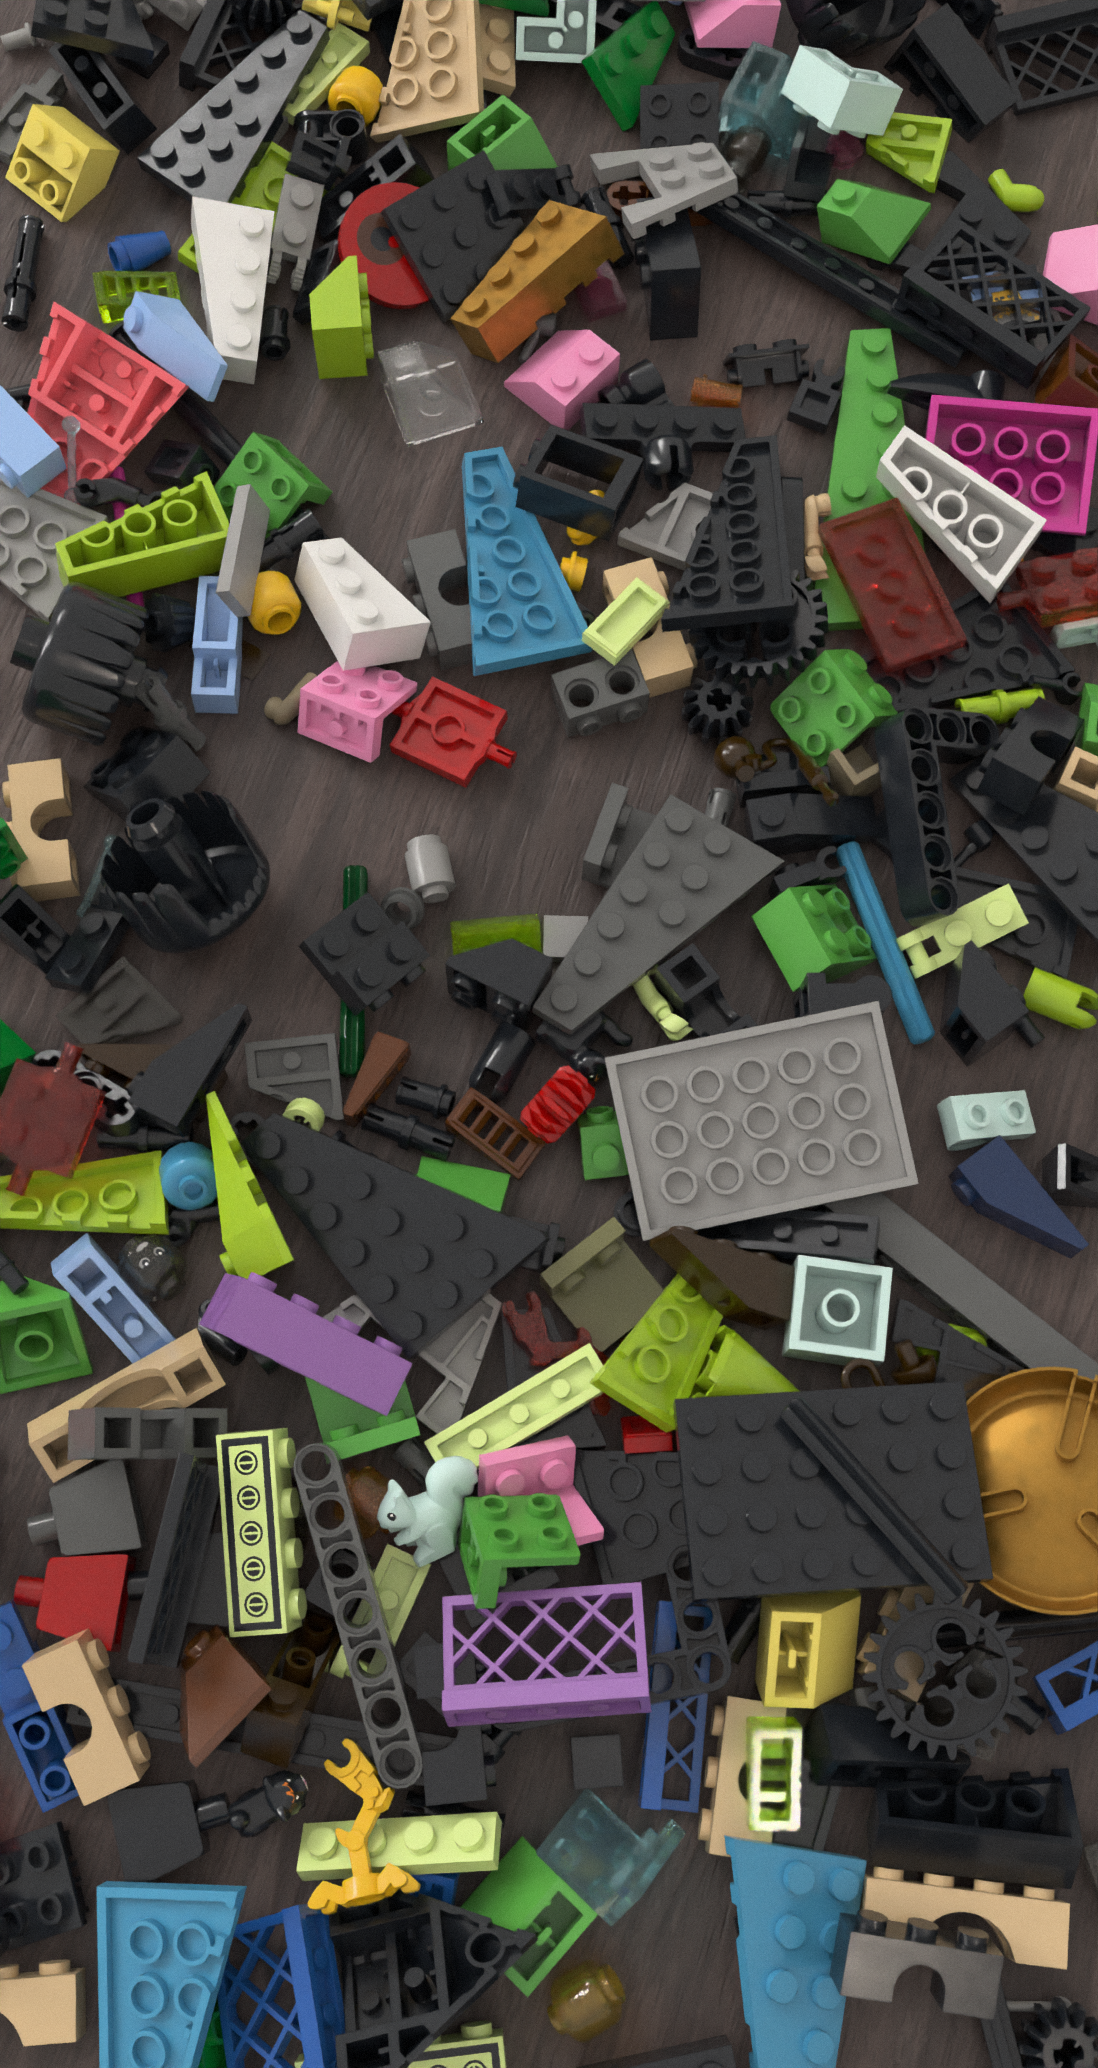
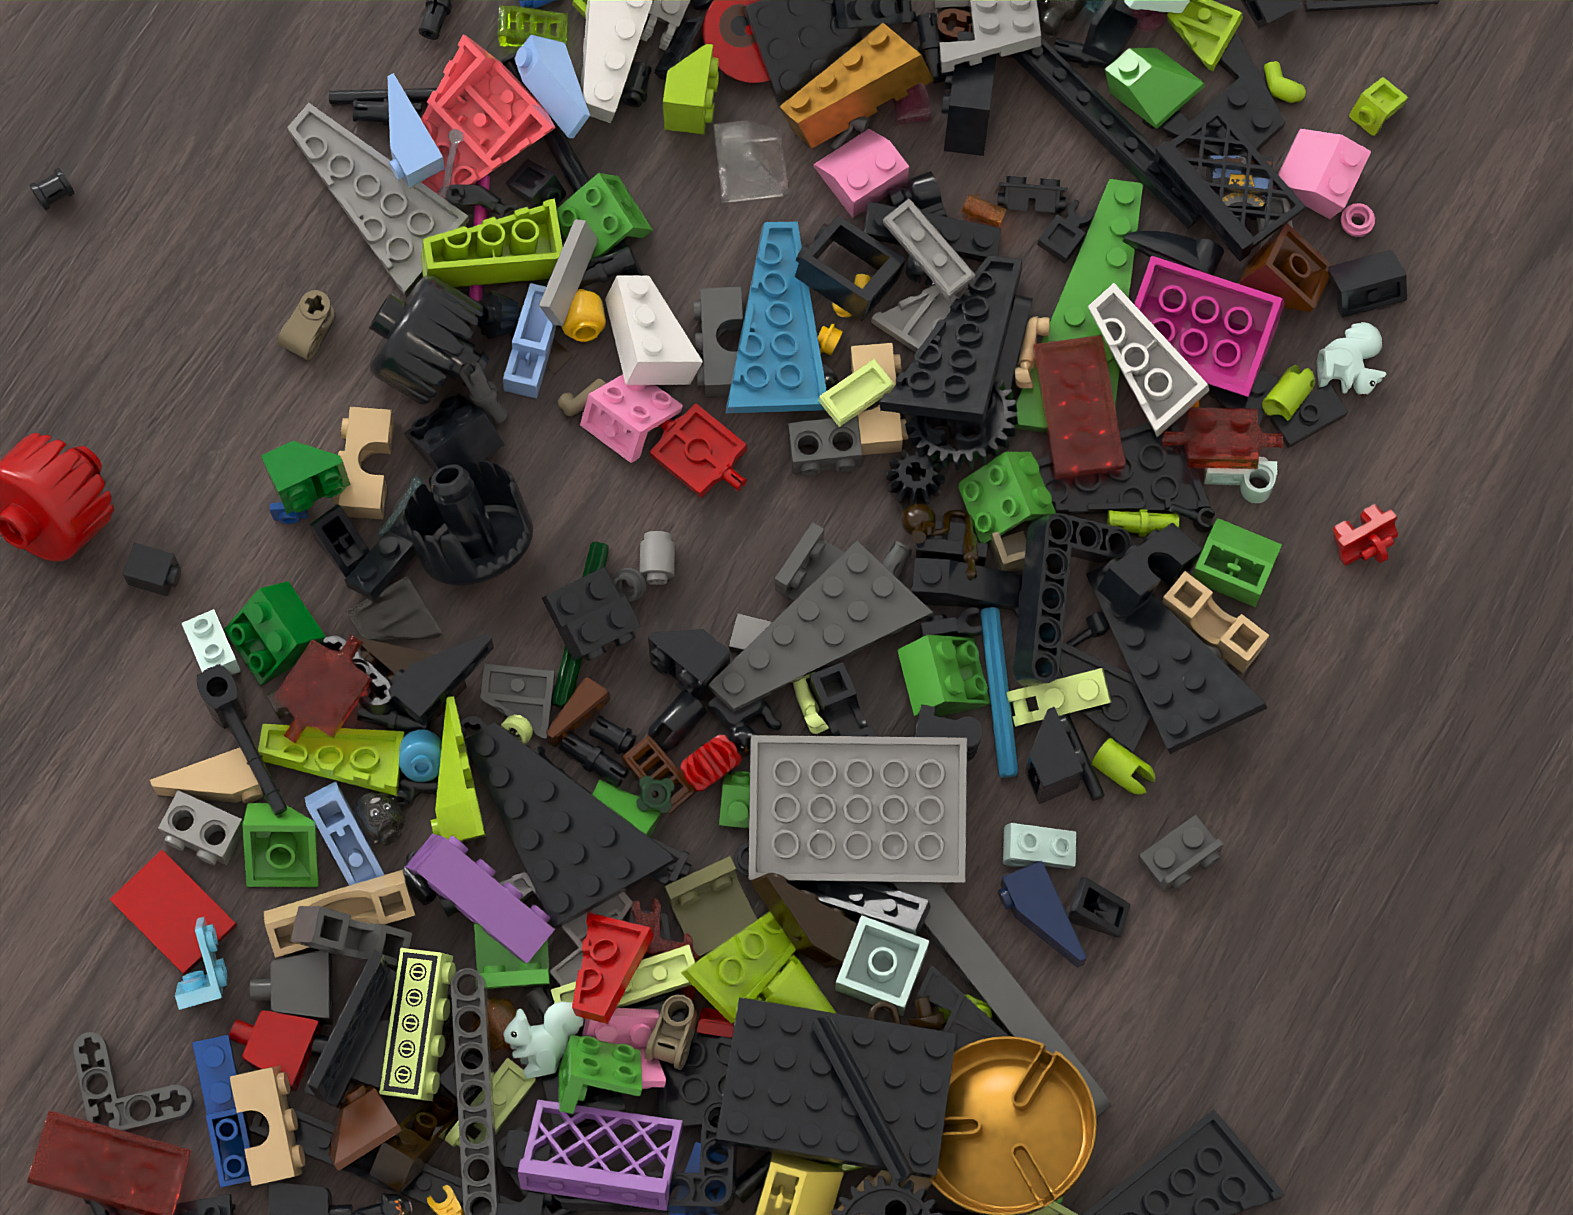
camera: 15 degrees right, 0 degrees up
(486, 931) = (690, 617): clear neon green slope -> none
(493, 1394) = (608, 964): none -> red wing
(507, 1168) = (646, 799): none -> dark green plate
(596, 1466) = (672, 1039): none -> dark tan piece
(668, 439) = (928, 248): none -> light grey tile

